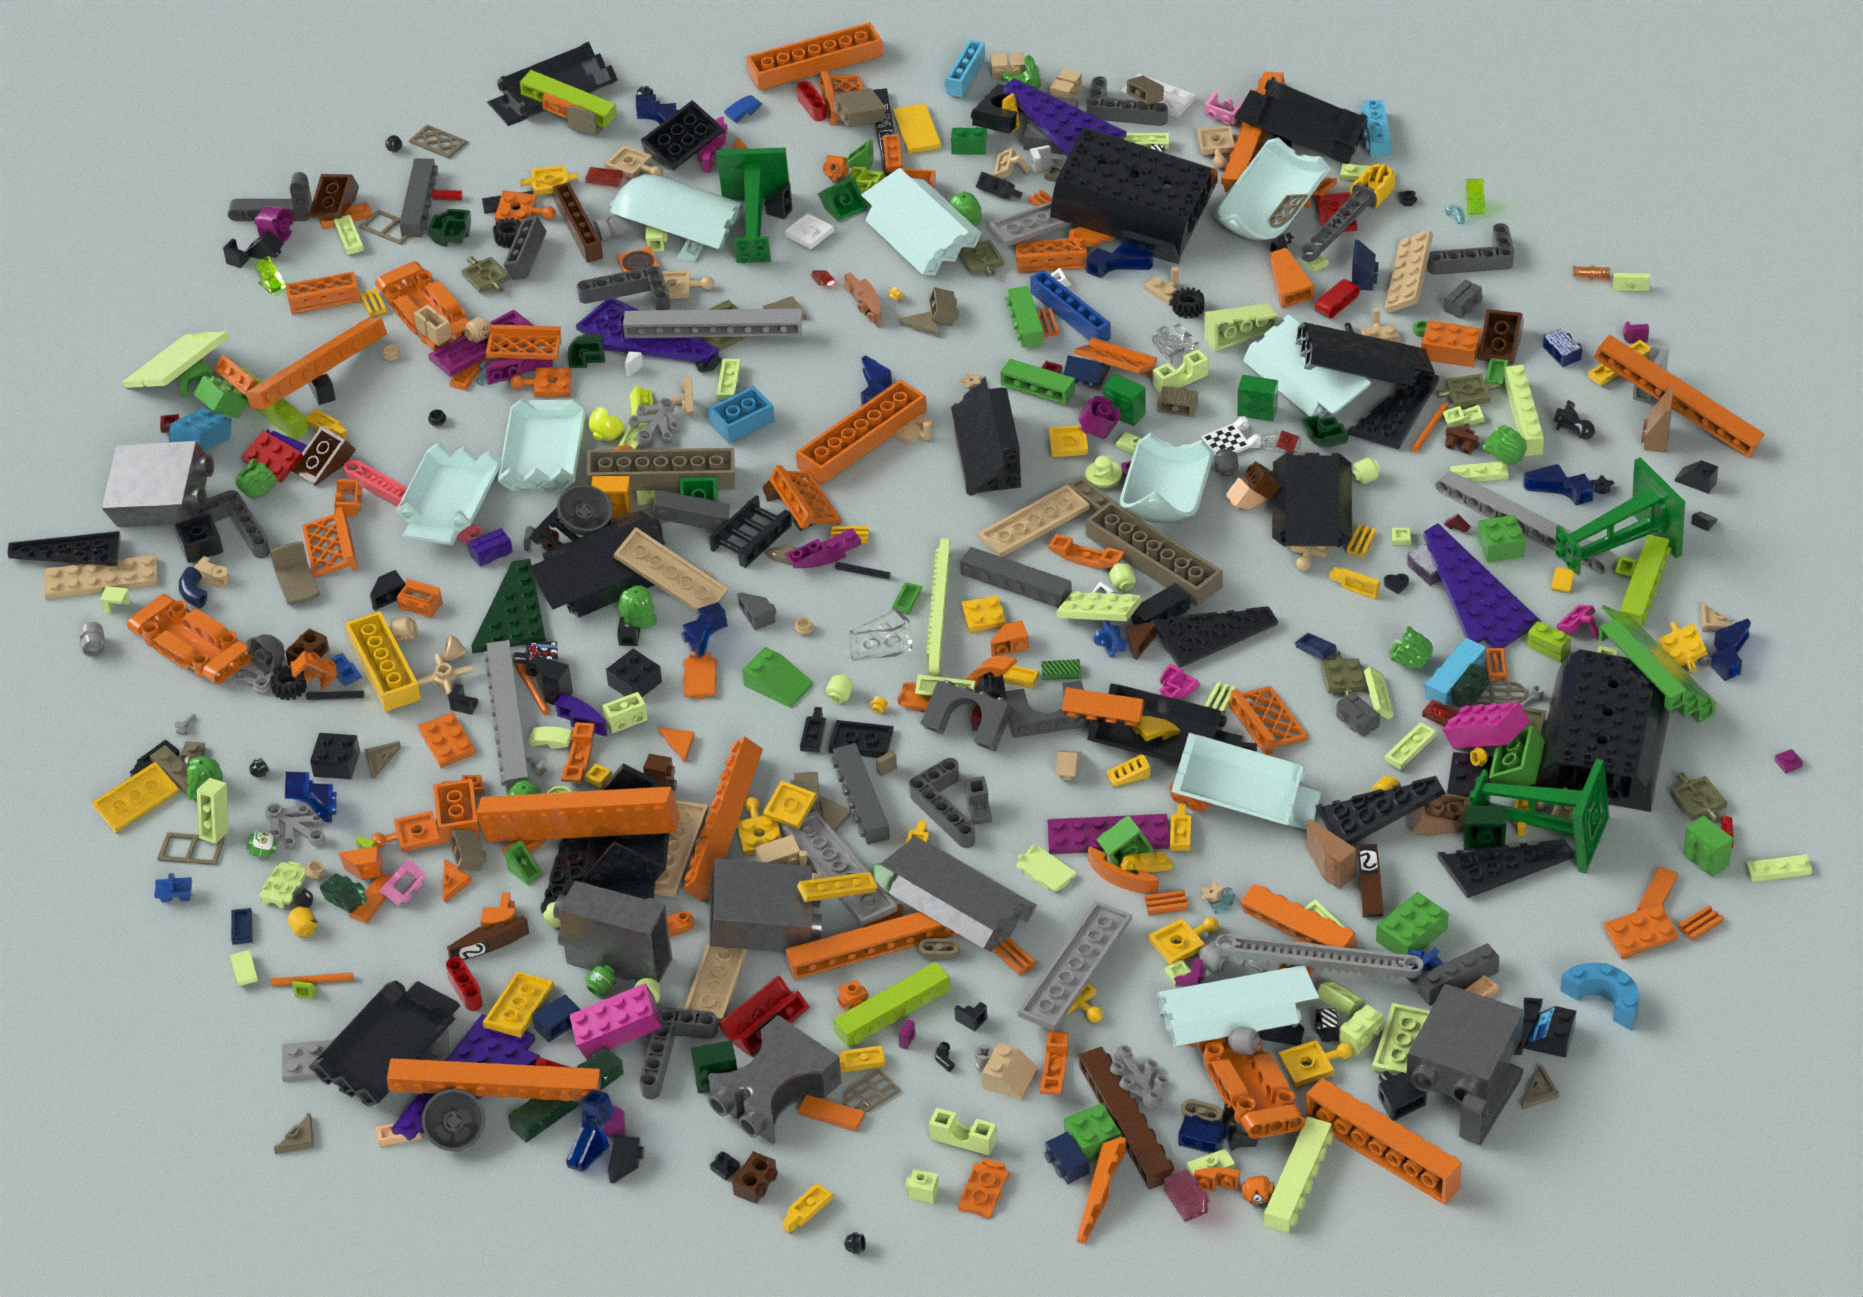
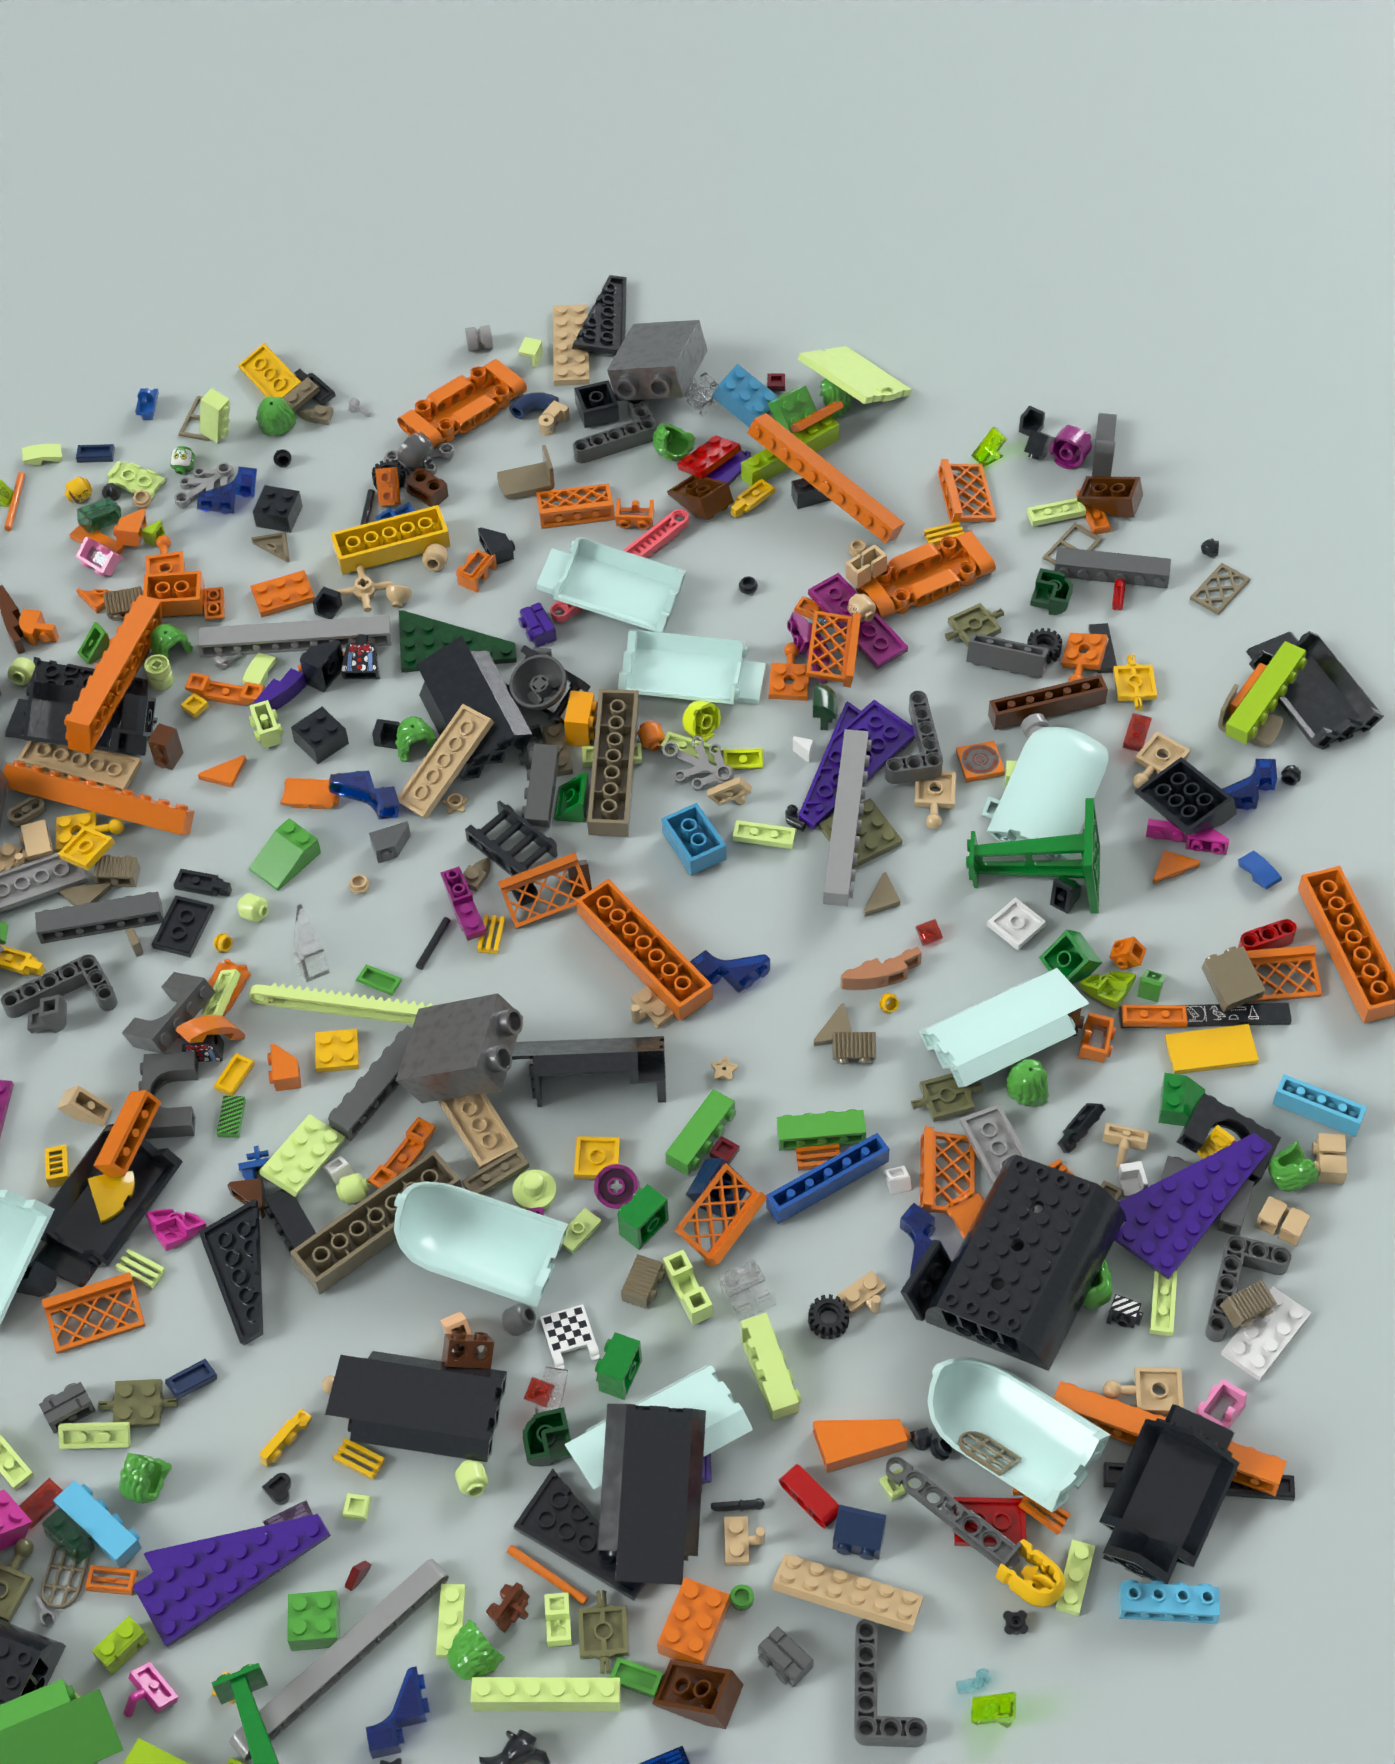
camera: 95 degrees right, 10 degrees up
(997, 494) = (460, 1048): none -> flat silver brick

